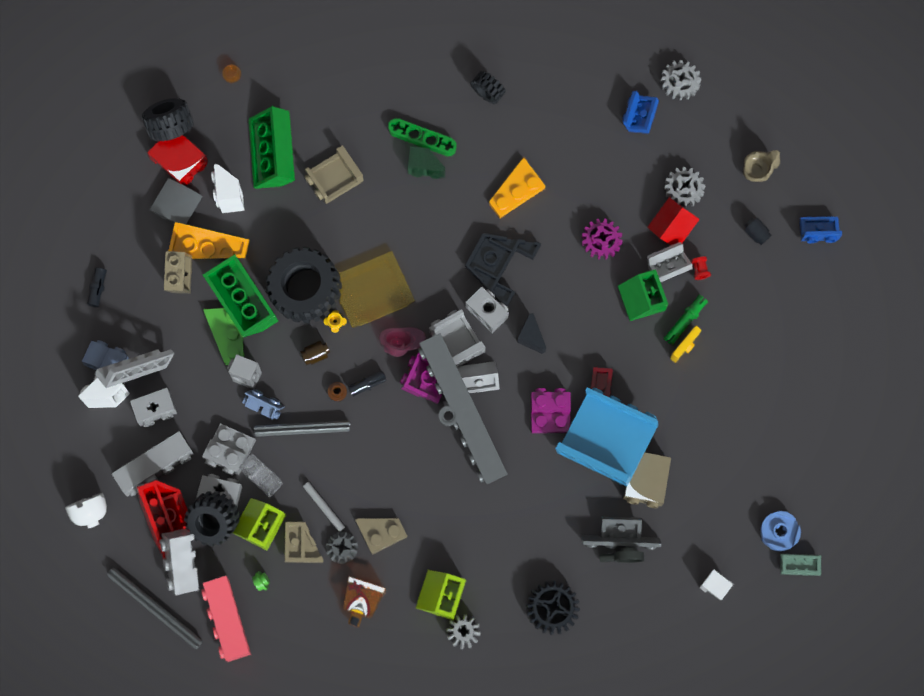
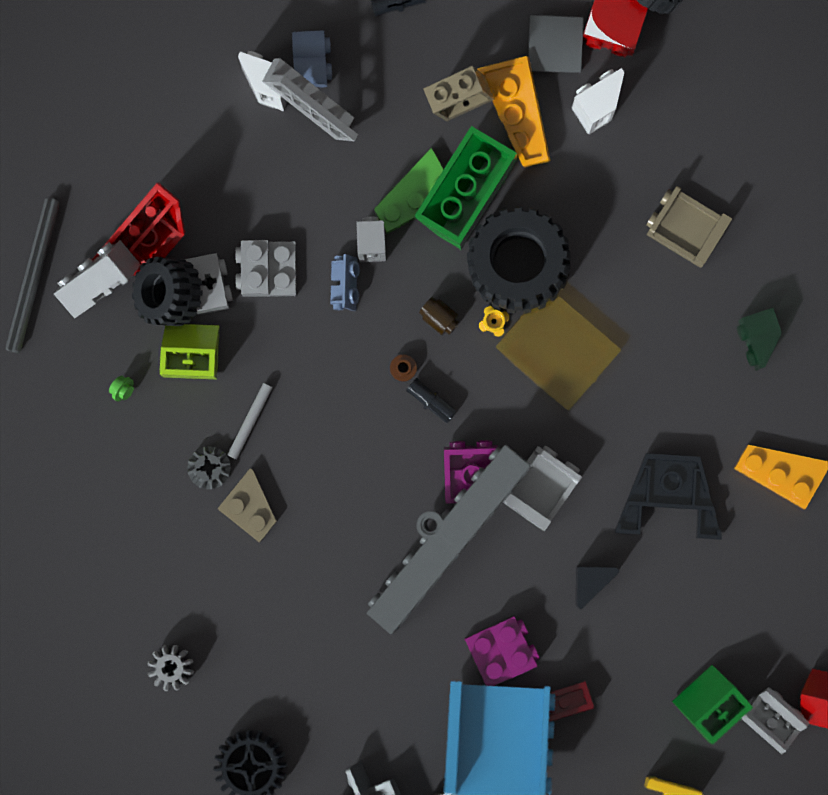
camera: 70 degrees right, 10 degrees up
(87, 511) = (111, 135): white cylinder -> none
(144, 405) = (270, 136): light grey brick -> none
(153, 464) = (205, 184): light grey brick -> none
(226, 619) = (55, 369): coral brick -> none
(231, 73) = (766, 27): clear orange plate -> none
(260, 475) = (251, 324): clear brick -> none
(271, 148) = (686, 129): green slope -> none
(300, 545) = (188, 414): dark tan wing -> none
(301, 428) = (336, 346): dark grey axle -> none
(362, 600) = (153, 523): torso -> none
(401, 340) = (506, 418): clear pink piece -> none
(423, 135) = (792, 316): green beam -> none
(441, 594) = (203, 618): lime slope -> none
(480, 377) = (506, 539): light grey panel -> none
(492, 319) = (598, 492): light grey brick -> none
(594, 241) = (775, 608): magenta gear -> none
(690, 314) = (706, 774): green pin -> none
(700, 268) = (787, 764): red bush -> none

